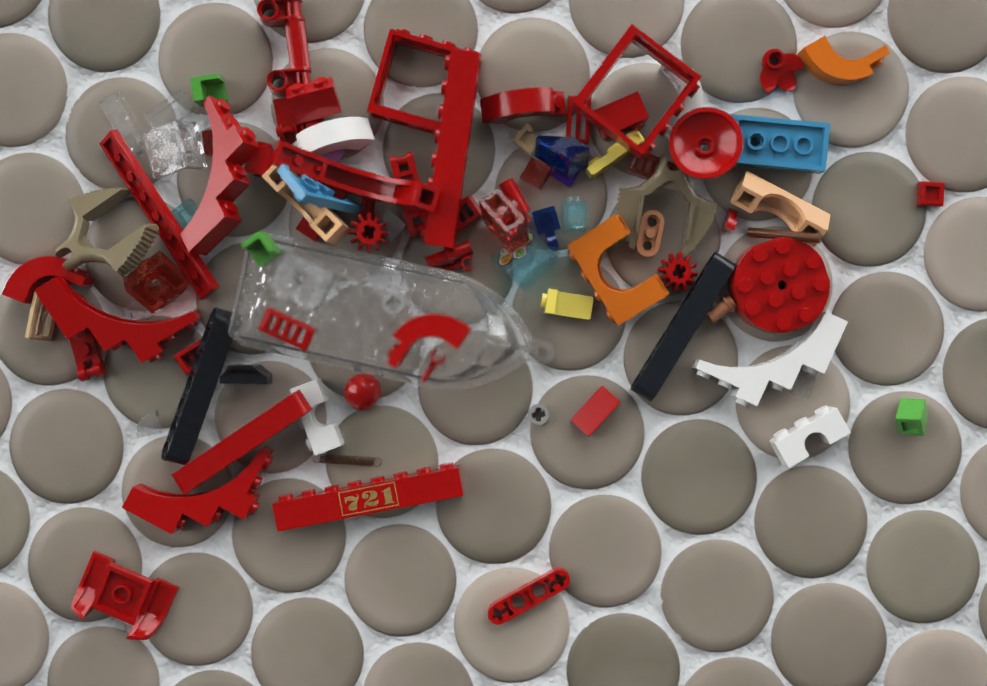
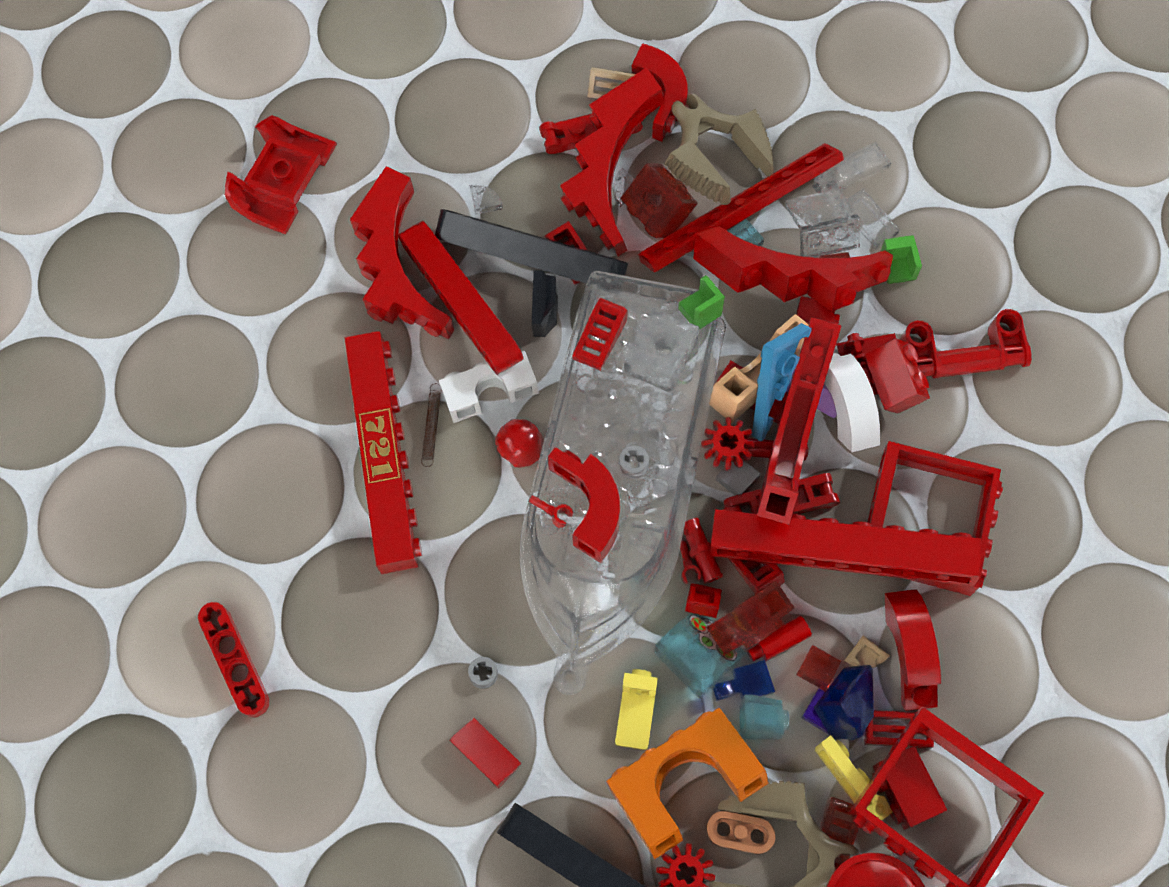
camera: 90 degrees right, 20 degrees down
(487, 254) = (703, 600): none -> red tile

